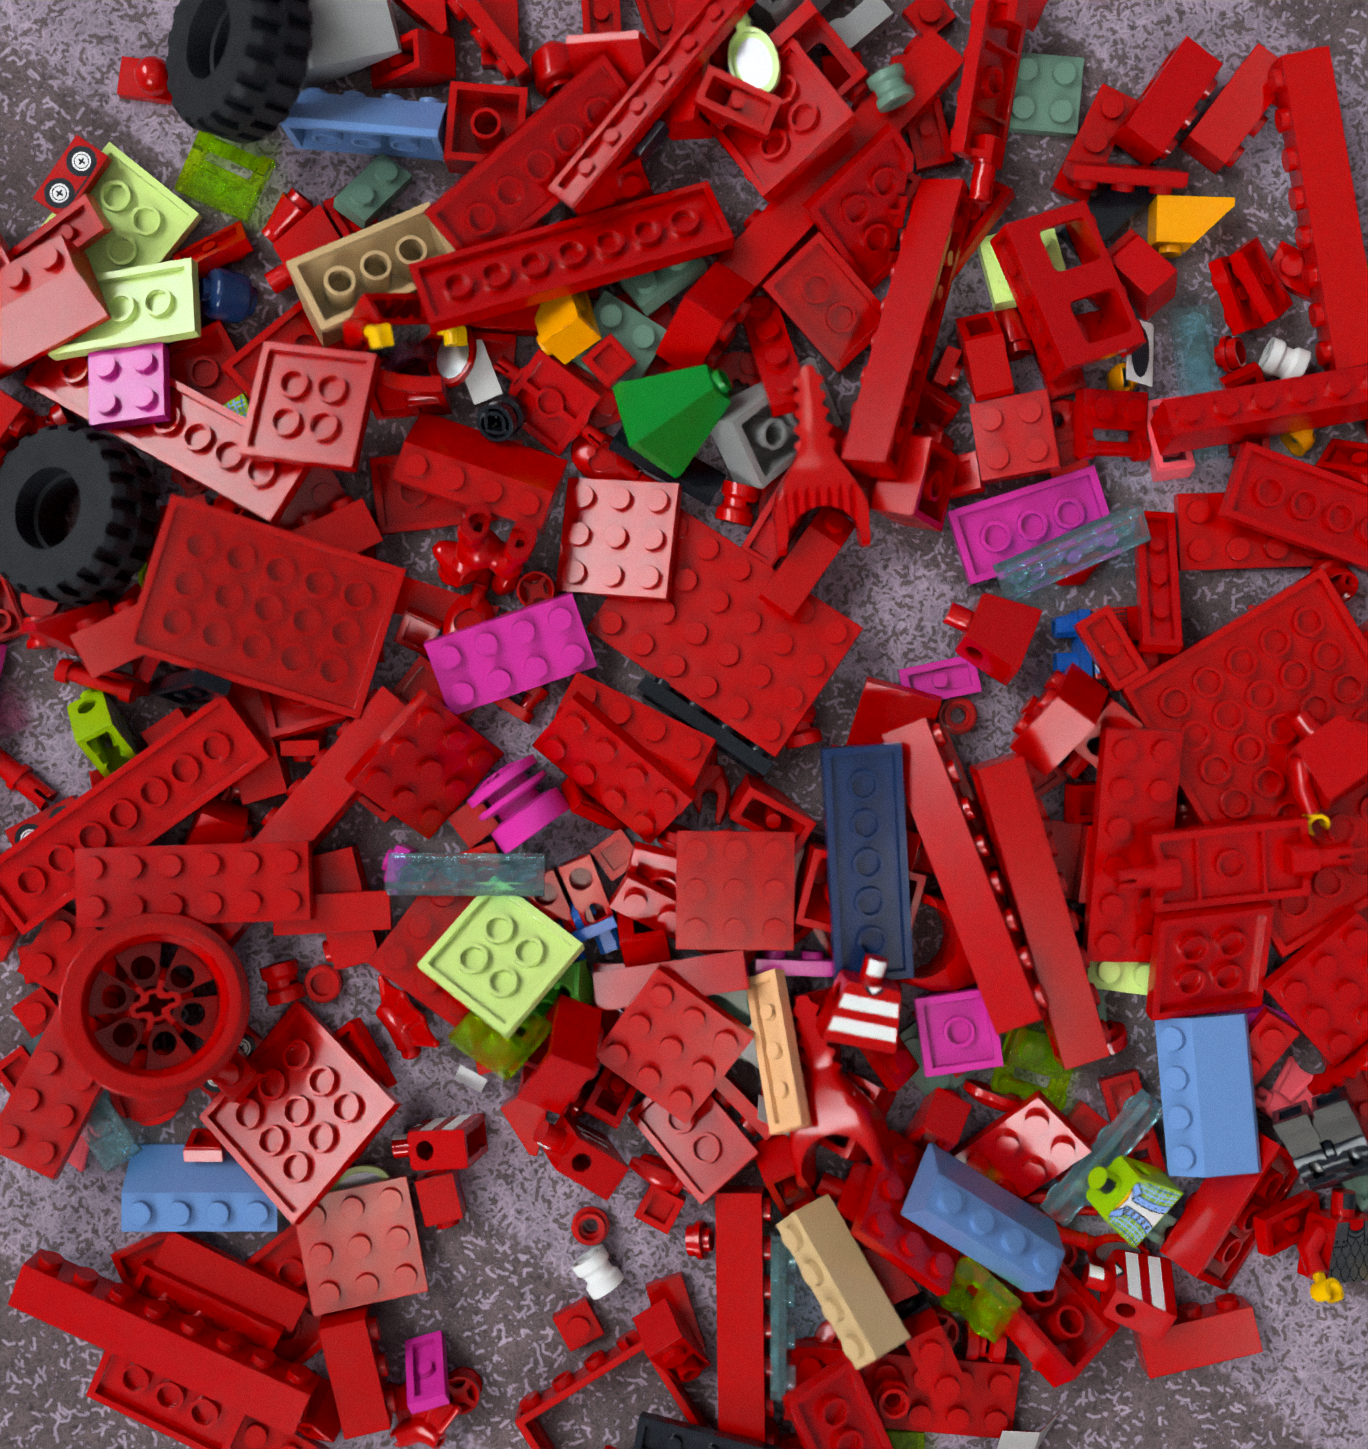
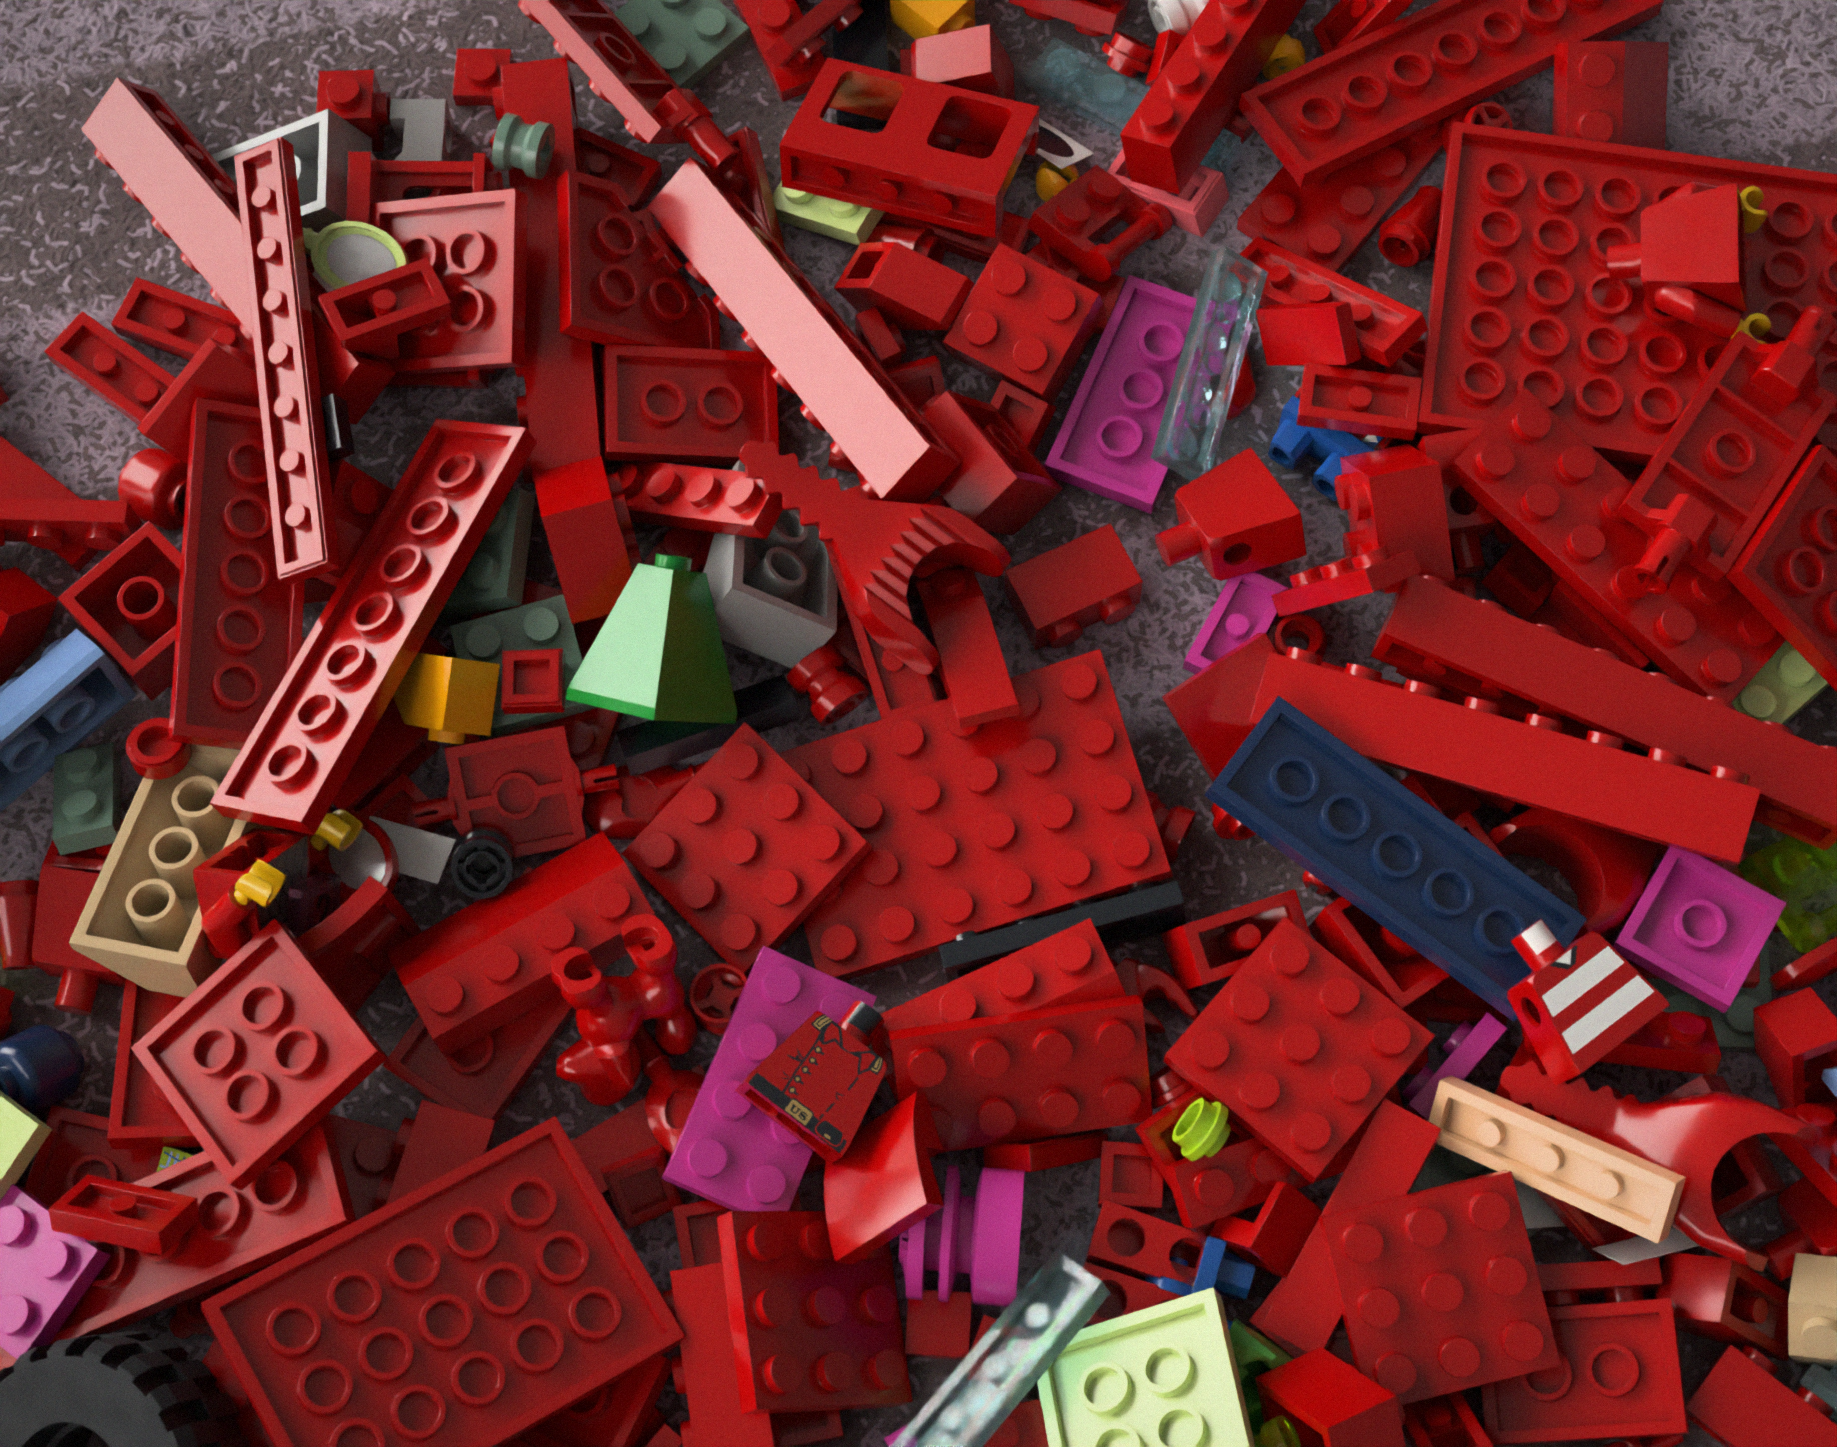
camera: 45 degrees left, 20 degrees down
(188, 412) = (124, 1214): none -> red plate
(413, 204) = (152, 753): none -> red tile
(506, 746) = (883, 1180): none -> red slope
(528, 679) = (821, 1079): none -> red torso
(655, 876) = (1202, 1129): none -> lime plate
(892, 582) = (1074, 588): none -> red brick
(996, 724) = (1345, 579): none -> red plate
(1128, 592) = (1308, 334): none -> red tile
(1246, 590) = (1411, 230): none -> red cone

